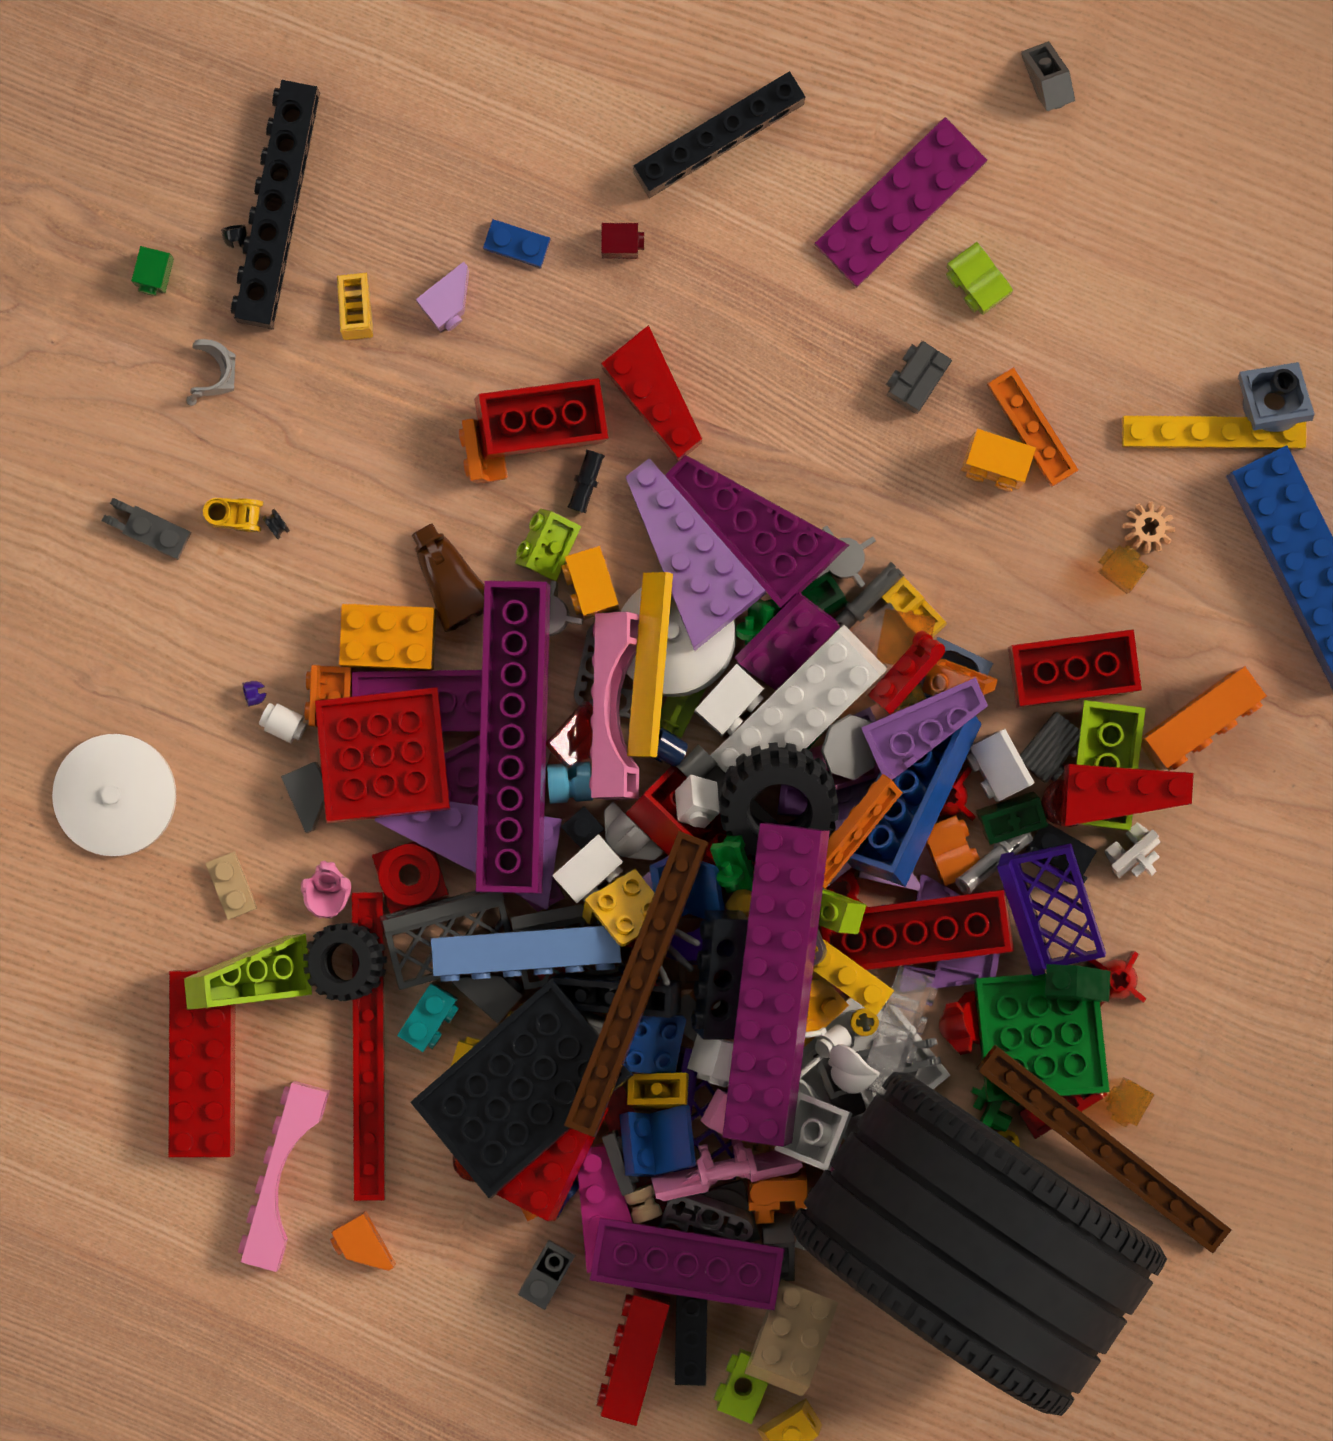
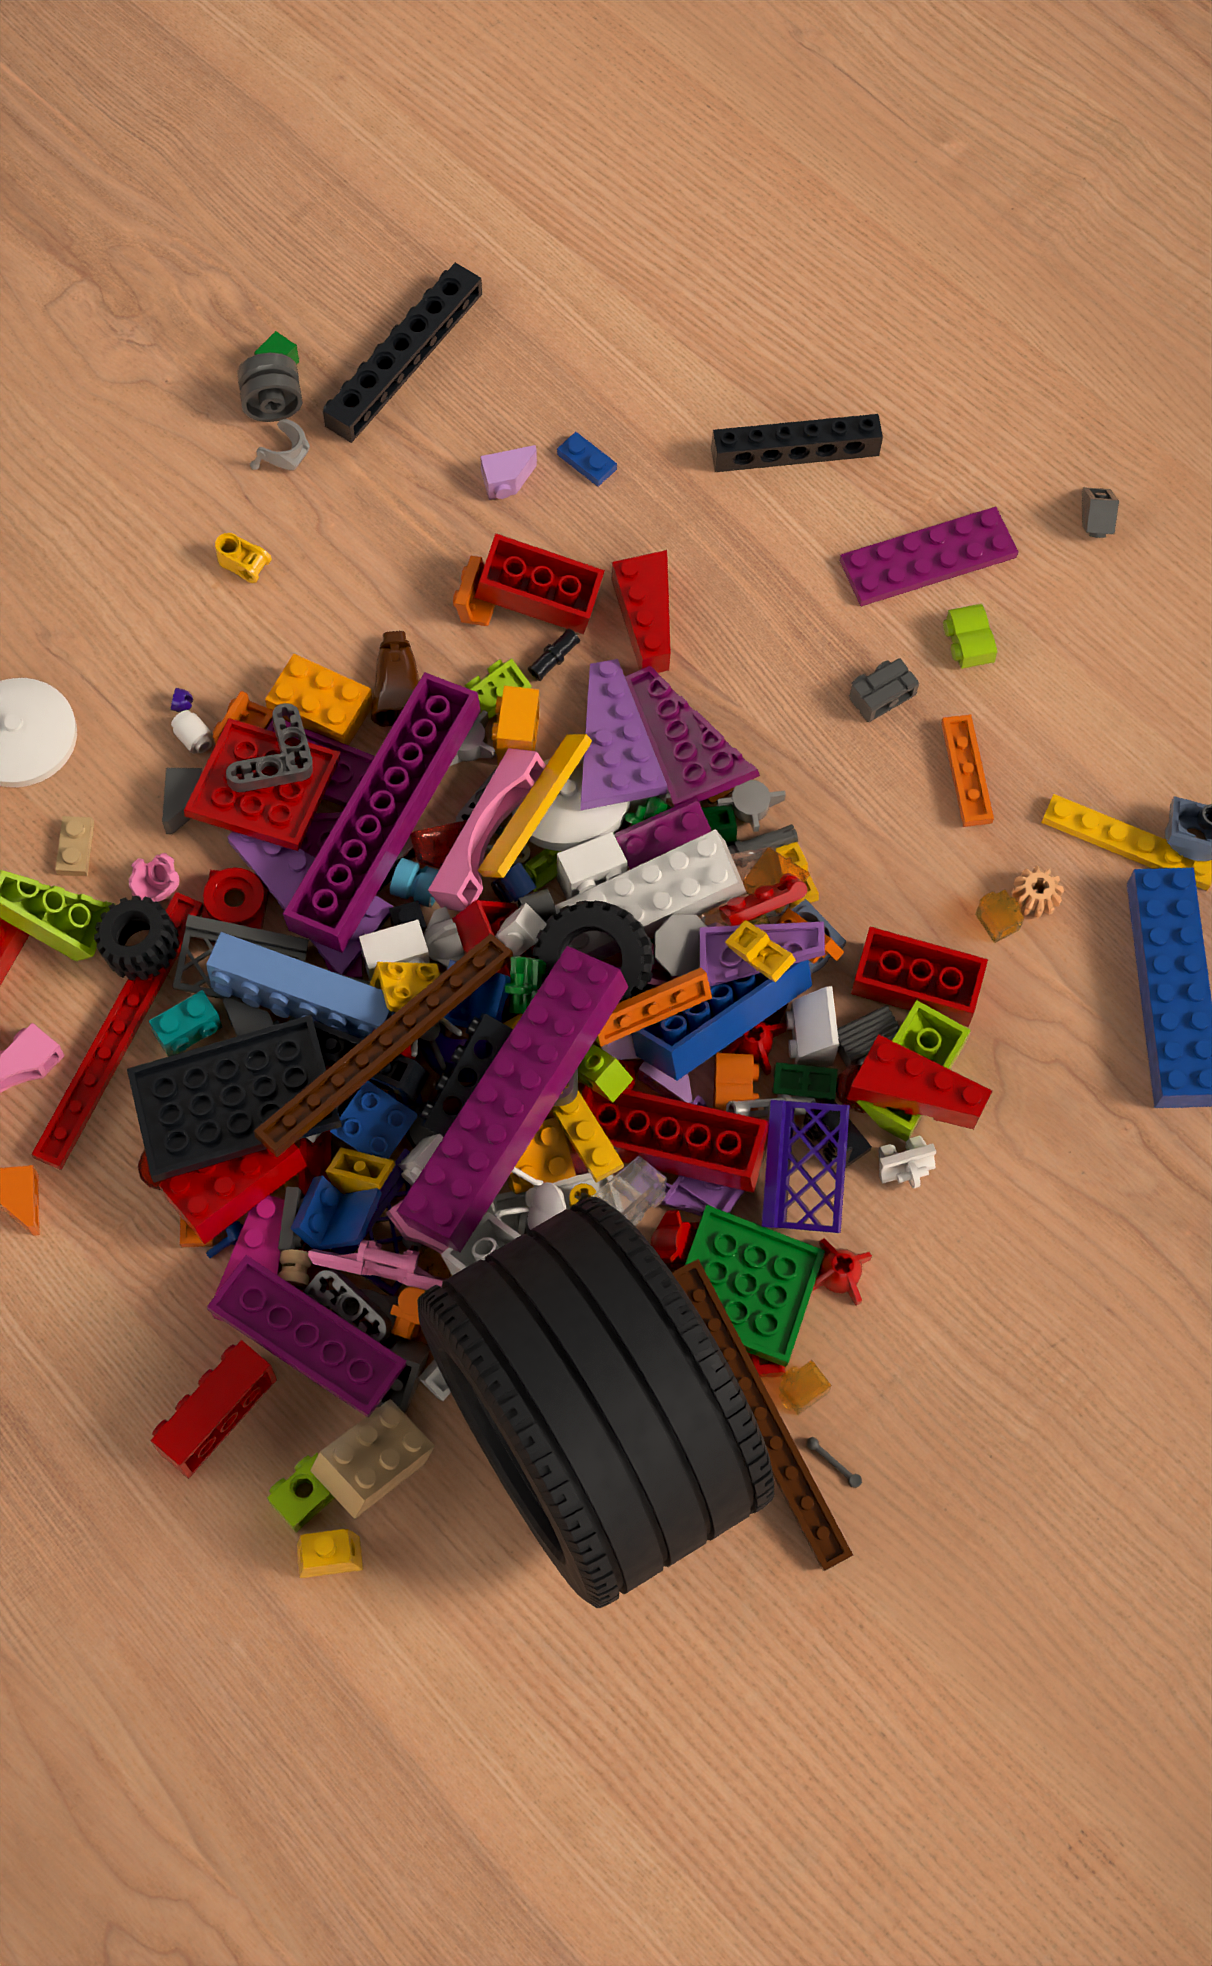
camera: 25 degrees right, 20 degrees down
(150, 529) = (165, 543): dark grey hinge -> none
(168, 316) = (269, 387): none -> dark grey wheel
(234, 233) = (355, 358): black hinge -> none
(276, 524) = (272, 579): black bush -> none
(358, 325) = (430, 449): yellow slope -> none
(392, 728) = (283, 762): none -> flat silver beam
(546, 1274) = (171, 1298): dark grey slope -> none
(621, 240) = (675, 487): dark red brick -> none
(690, 1341) = (277, 1419): black brick -> none
(929, 733) = (759, 951): none -> yellow slope
(997, 460) = (924, 775): light orange brick -> none
(1077, 983) = (799, 1244): dark green slope -> none
(1201, 718) = (1026, 1063): orange brick -> none
(1204, 1160) = (853, 1479): none -> dark grey hinge

